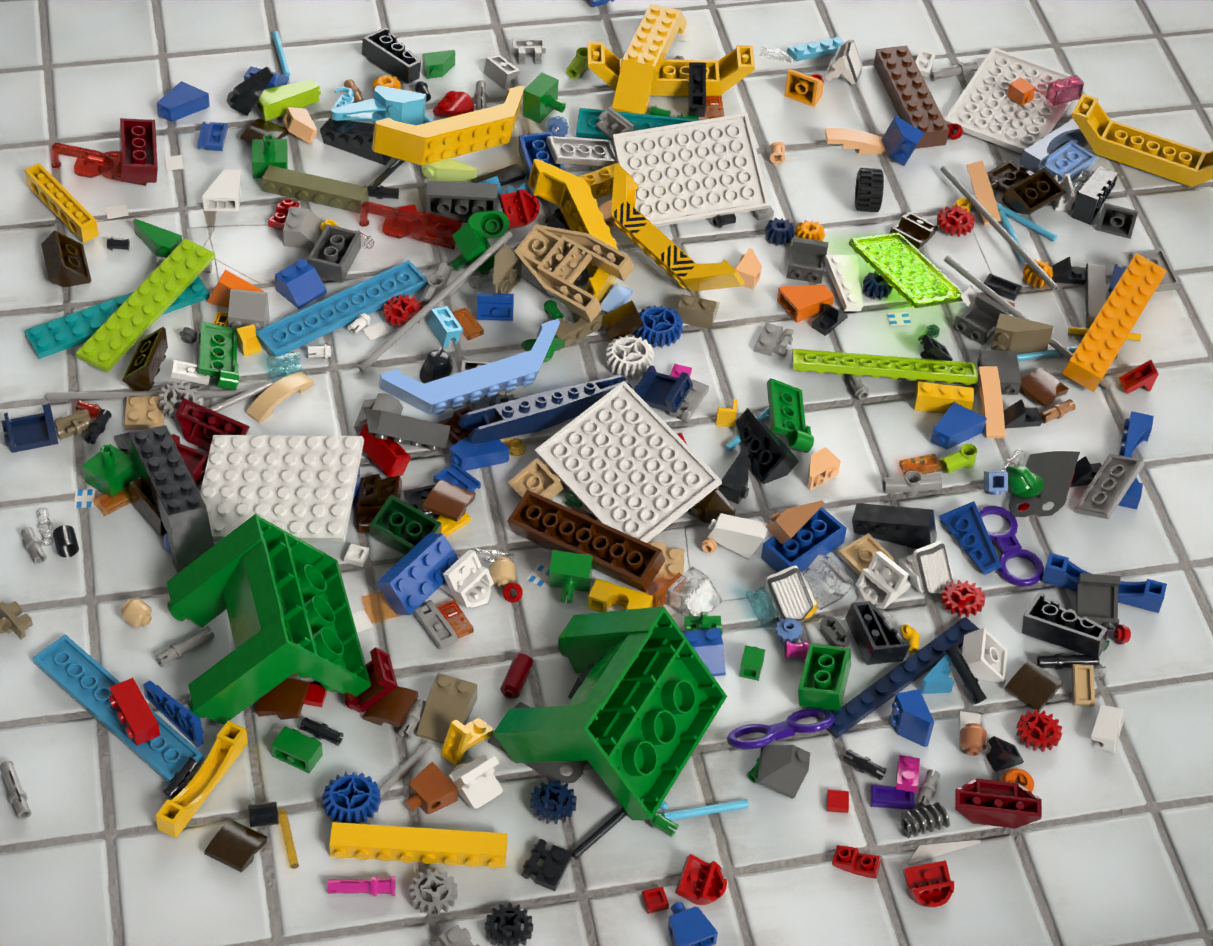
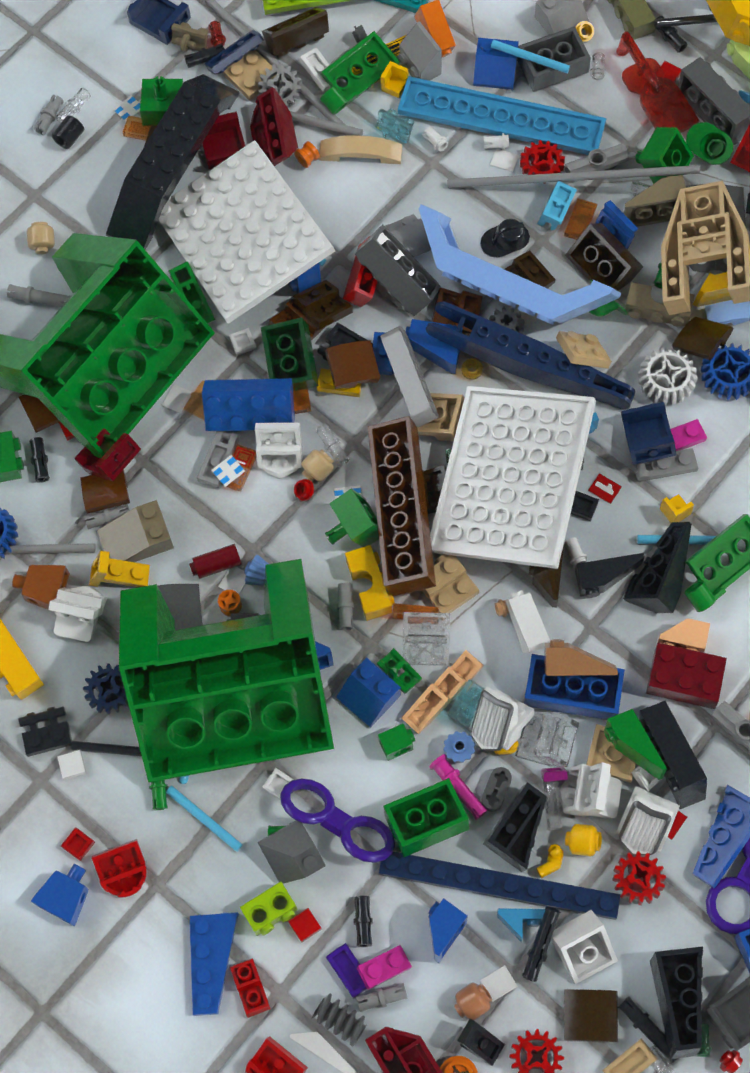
camera: 60 degrees right, 20 degrees up
(119, 406) = (234, 52): none -> dark blue plate
(253, 420) = (307, 154): none -> orange wheel
(325, 257) = (530, 56): none -> medium azure bar
(453, 623) = (228, 470): none -> white sticker
(491, 474) = (409, 376): none -> light grey beam
(509, 330) = (603, 257): none -> dark brown slope
(539, 679) = (233, 580): none -> white sticker
(550, 656) = (255, 571): none -> medium blue piece
(557, 684) = (228, 598): none -> orange wheel
(567, 378) = (583, 349): none -> tan plate
(589, 864) = (71, 764): none -> white tile
(720, 751) = (276, 782): none -> white tile
(738, 614) = (442, 692): none -> light nougat slope
(810, 811) = (265, 903): none -> lime brick
(812, 871) = (210, 952): none -> blue wing
(847, 485) = (686, 675): none -> dark red brick
(853, 594) = (554, 774): none -> magenta tile
(874, 534) = (632, 741): none -> green slope
(896, 548) = (644, 778): none -> white tile
(912, 609) = (583, 840): none -> yellow head

